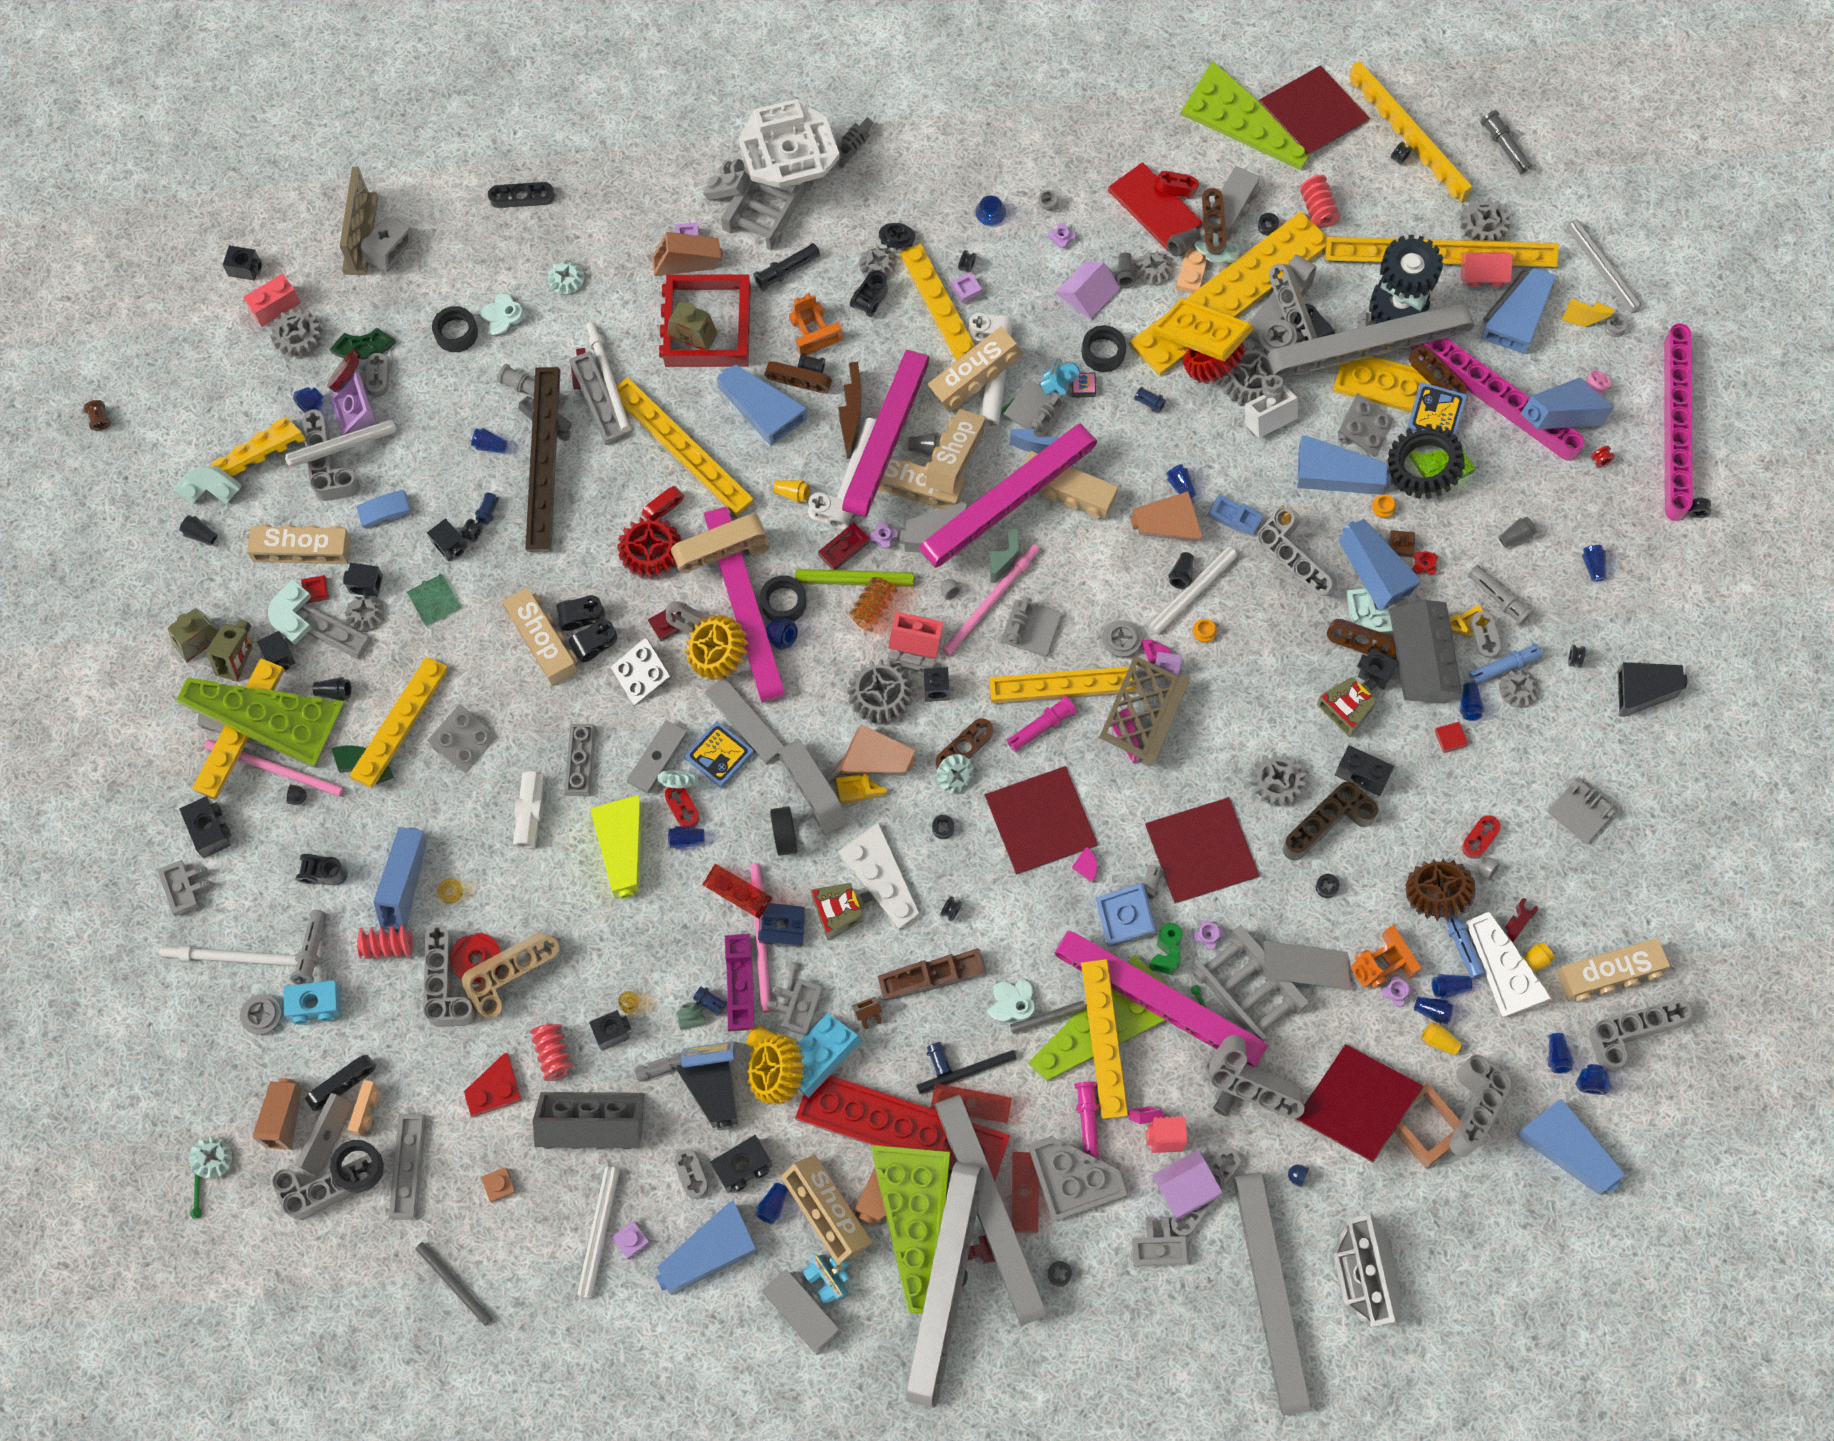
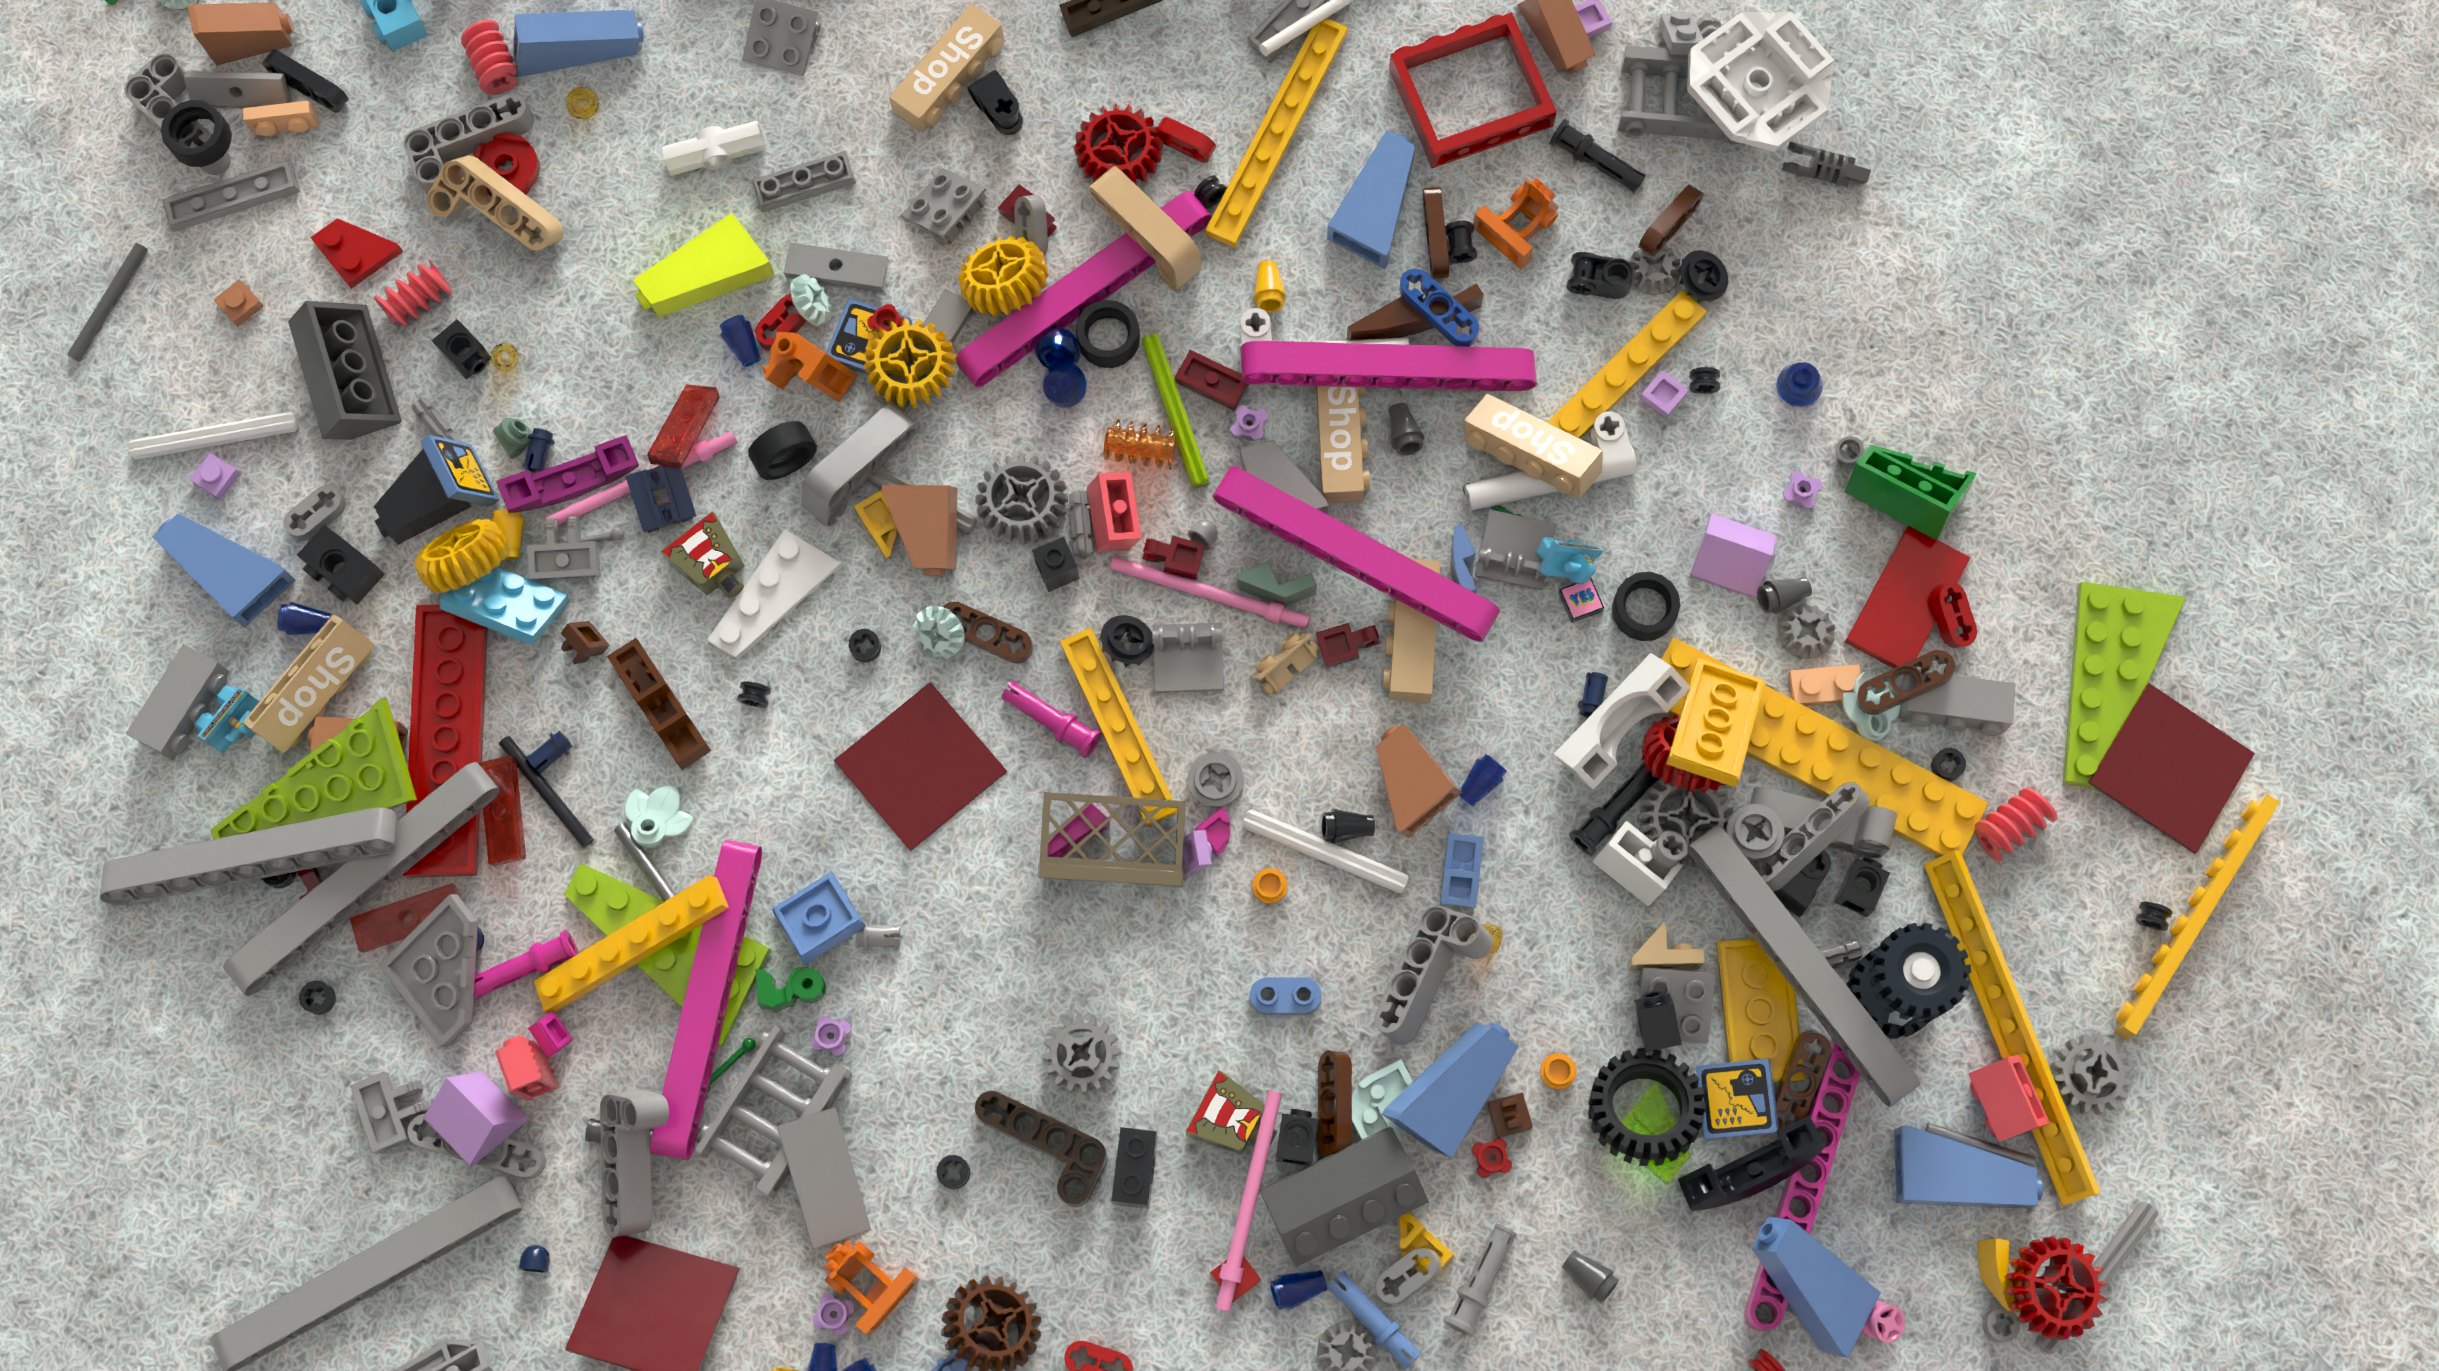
camera: 70 degrees right, 5 degrees up
(591, 641) = (966, 133): black piece -> none
(692, 326) = (1437, 60): olive torso -> none
(708, 501) = (1210, 191): none -> black bush
(713, 728) = (884, 314): none -> red plate
(735, 782) = (795, 353): none -> orange tile
(736, 721) = (882, 362): none -> yellow gear
(802, 638) = (1064, 384): none -> clear blue cone
(852, 238) = (1671, 220): none -> reddish brown beam
(863, 379) = (1415, 297): none -> blue beam
(954, 451) = (1397, 463): tan brick -> none
(959, 607) = (1180, 557): none -> dark red plate
(1002, 653) = (1137, 633): none -> black gear
(1053, 561) = (1274, 668): none -> tan hinge
(1059, 531) = (1341, 644): none -> dark red plate
(1086, 865) = (874, 844): dark pink tile -> none
(1090, 174) = (1908, 490): none -> green wedge
(1164, 361) = (1647, 691): none -> white arch
(1182, 242) = (1861, 654): dark grey cone -> none
(1201, 850) = (950, 988): dark red piece -> none
(1233, 421) = (1605, 819): none -> black pin
(1280, 645) = (1285, 999): none -> medium blue plate
(1329, 422) = (1655, 954): none -> tan slope
(1332, 304) = (1855, 899): none -> black brick
(1338, 469) = (1586, 983): medium blue slope -> none
(1376, 434) = (1657, 1021): none -> black brick
(1450, 734) = (1231, 1271): none -> bright pink bar
(1484, 416) = (1753, 1172): none -> black slope
(1500, 134) = (2254, 1055): dark grey pin -> none
(1608, 283) = (2064, 1264): none -> red gear

